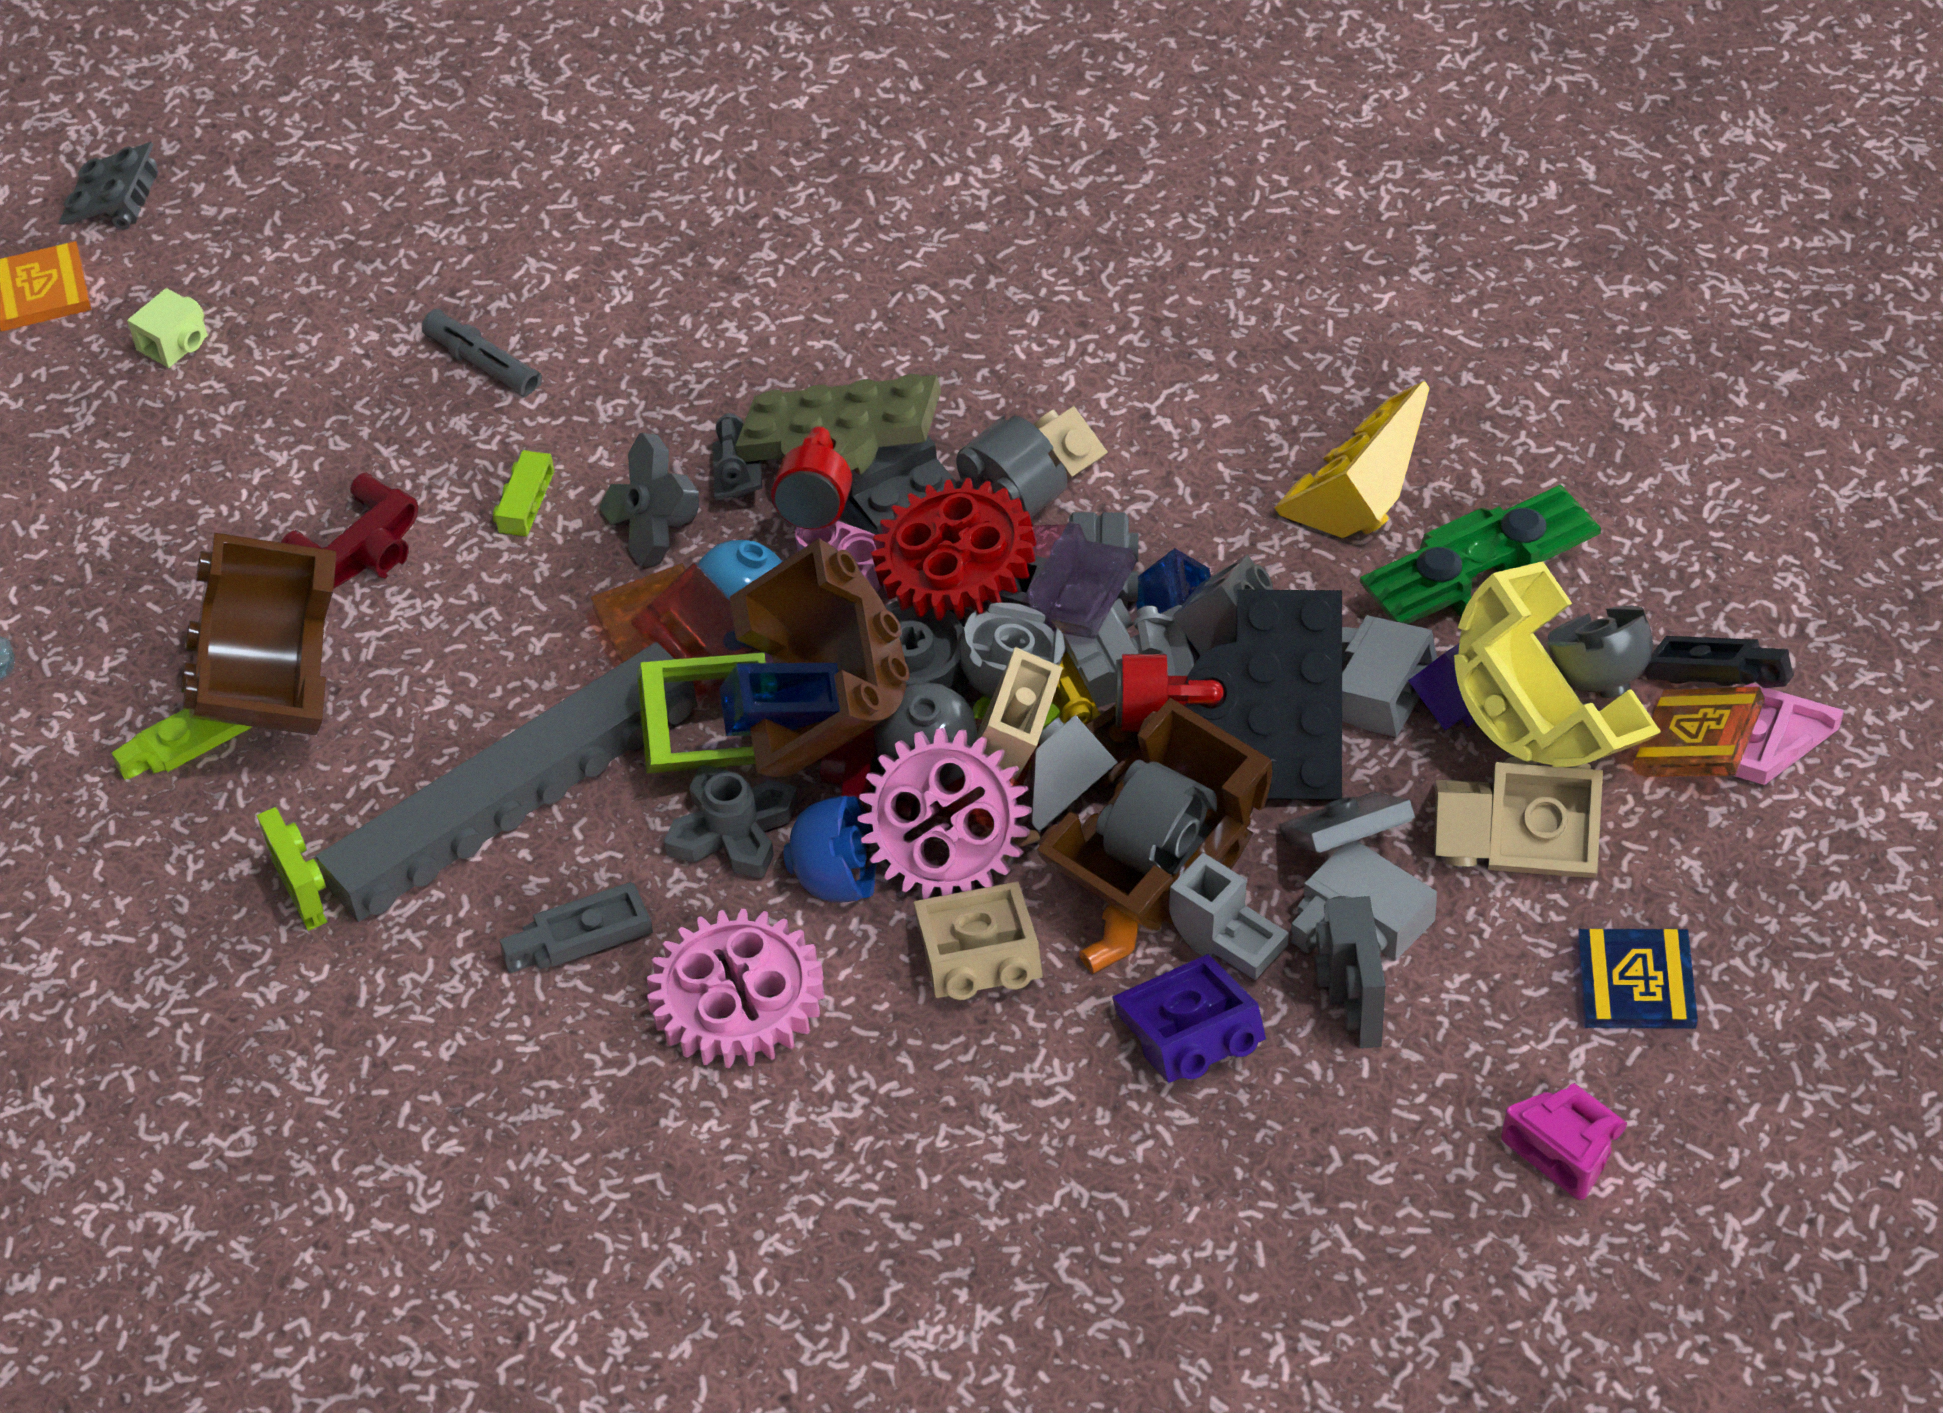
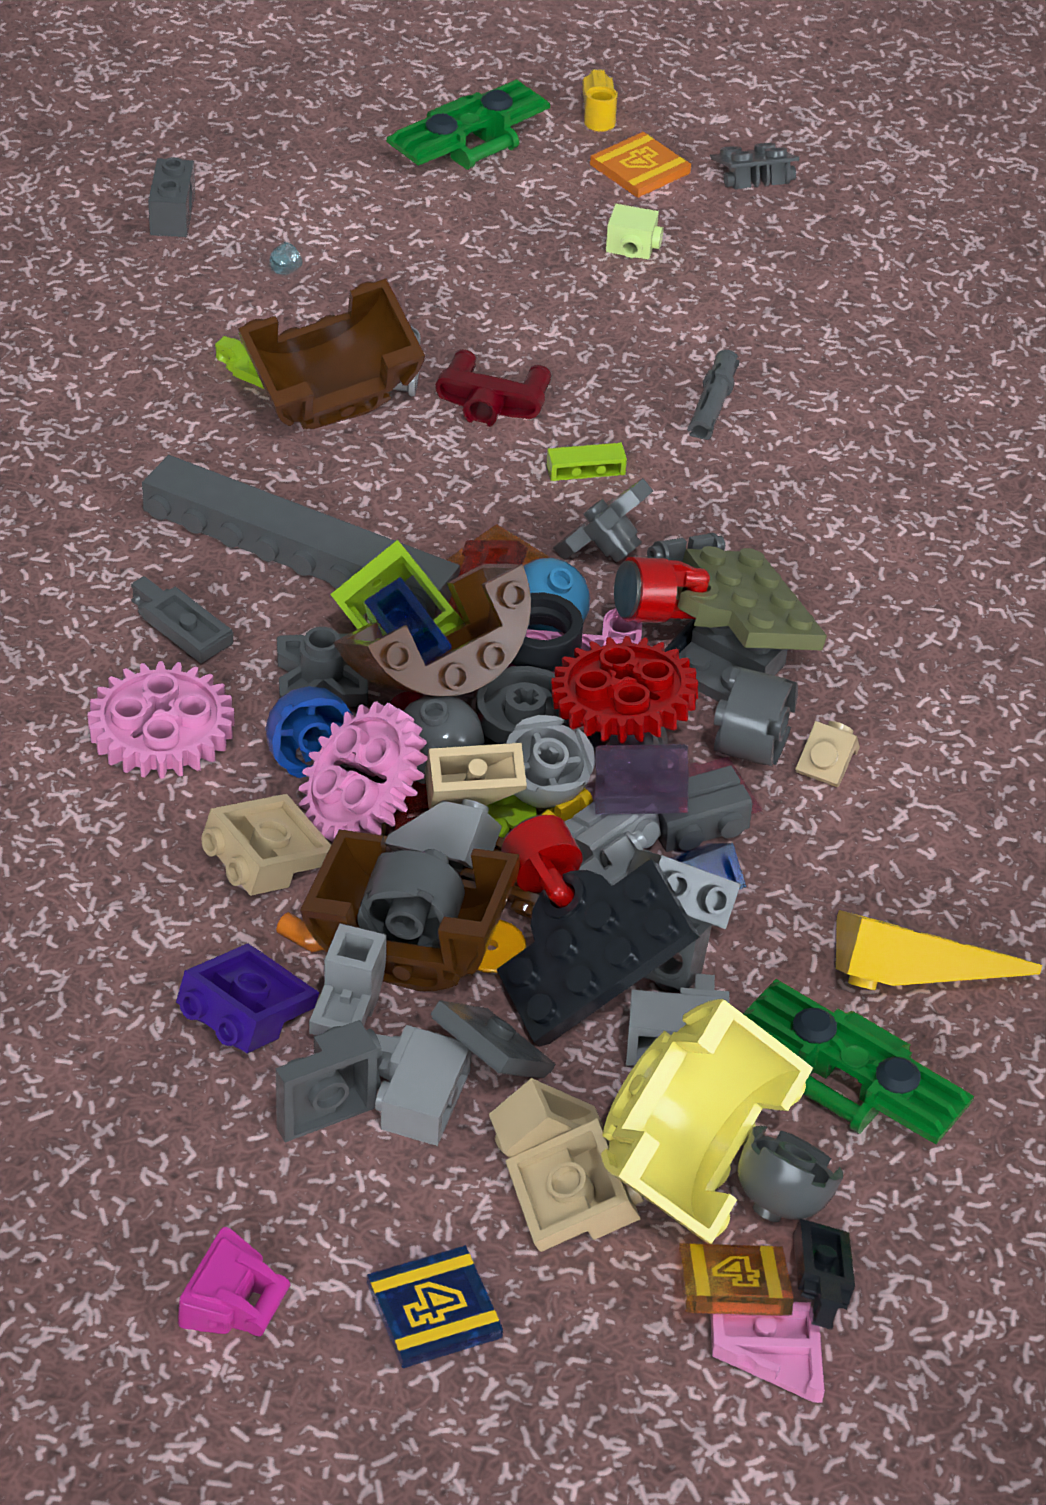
camera: 60 degrees right, 5 degrees down
(299, 877) = (148, 449): lime plate -> none

